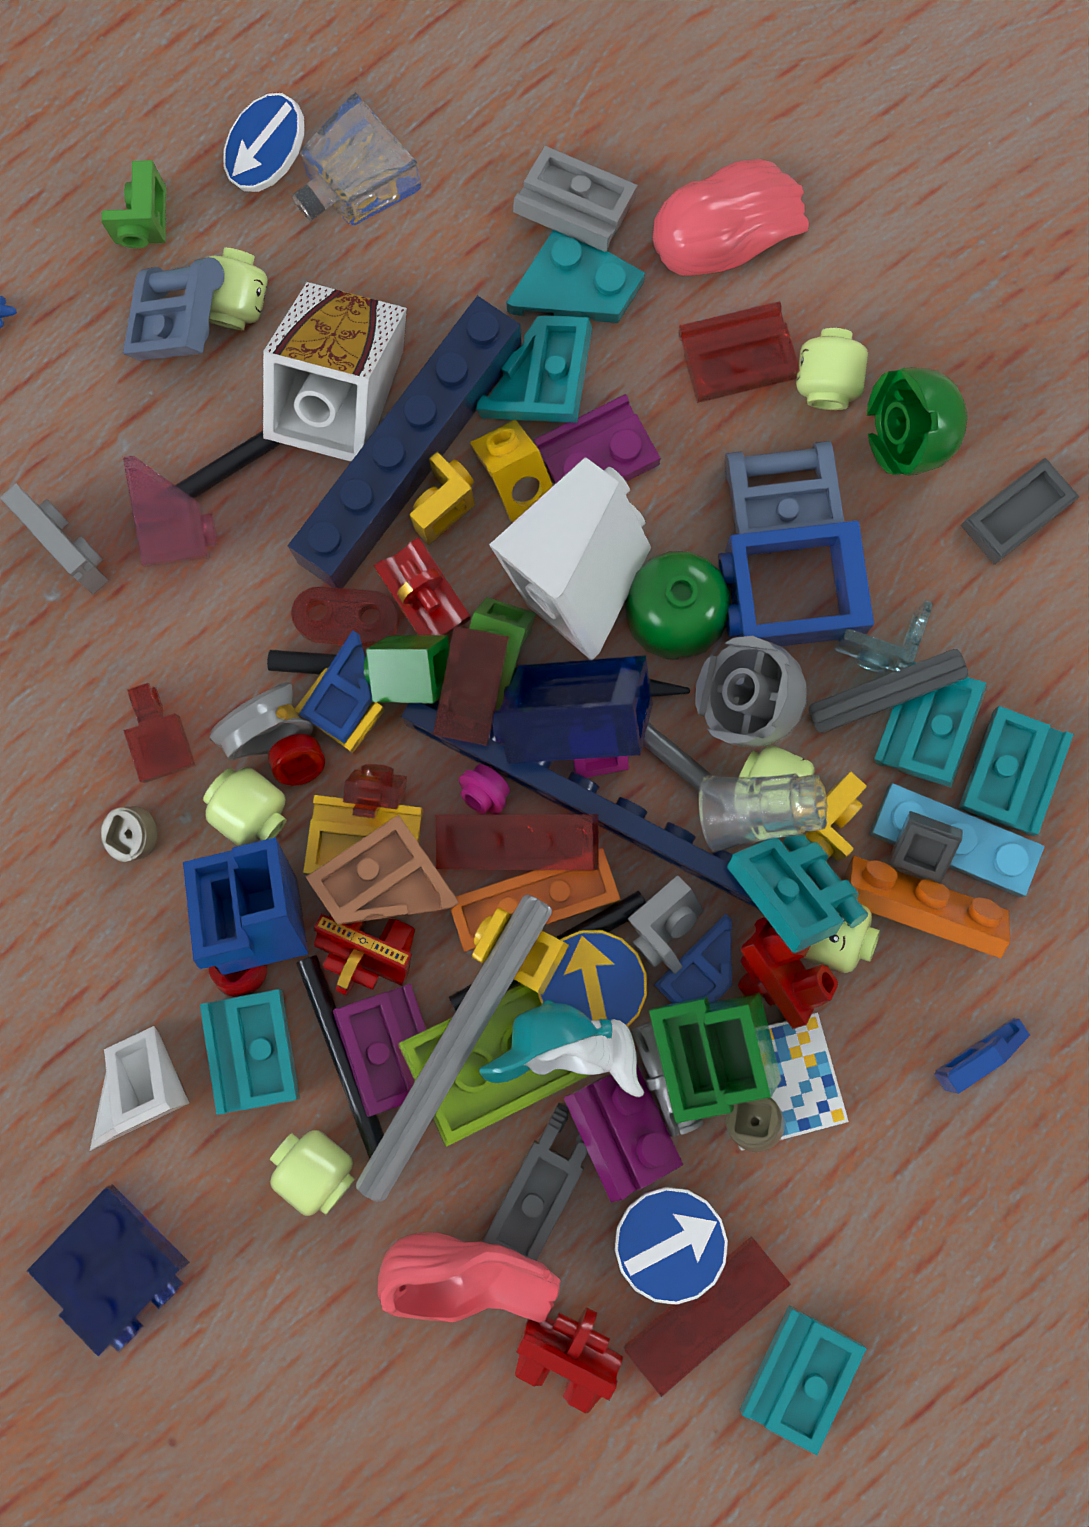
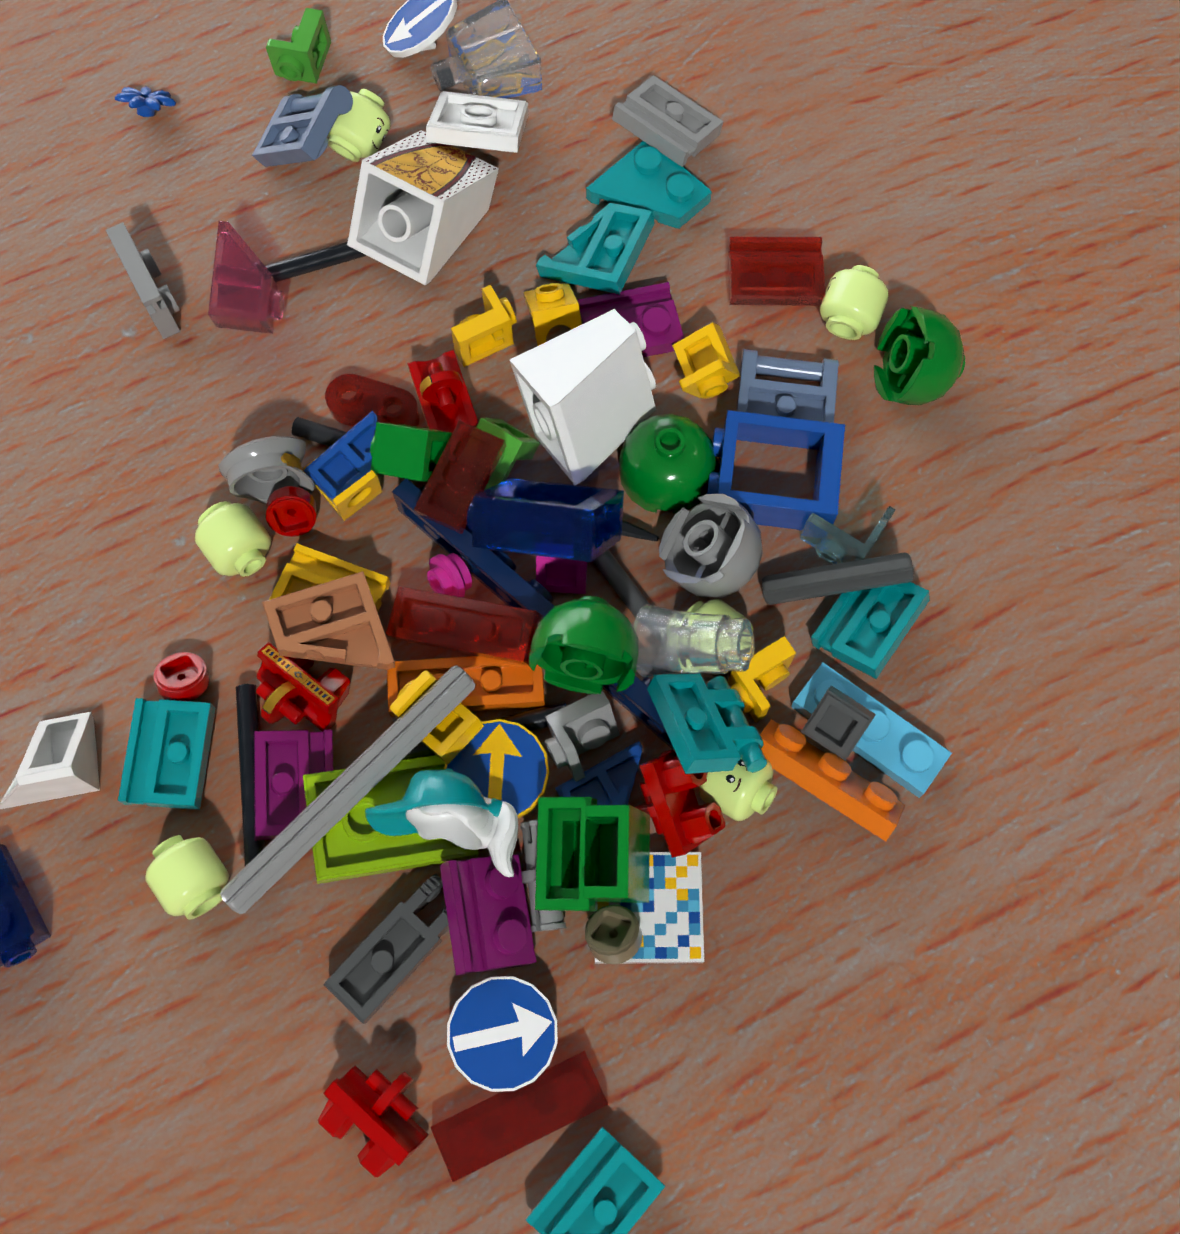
camera: 10 degrees right, 10 degrees down
(129, 833) = (124, 538): dark tan tile -> none
(158, 742) = (178, 467): clear red plate -> none
(244, 908) = (202, 621): blue plate -> none
(366, 254) = (477, 122): none -> white tile
(374, 788) = (350, 547): clear red plate -> none
(399, 450) = (449, 286): dark blue brick -> none
(453, 1279) = (294, 1012): coral hair -> none
(657, 841) = (585, 646): none -> green cylinder
(691, 480) = (706, 362): none -> yellow bracket
(728, 218) = (793, 165): coral hair -> none
(982, 1057) = (847, 932): blue tile -> none
(1016, 771) = (940, 680): teal plate -> none
(1019, 511) = (995, 459): dark grey tile -> none

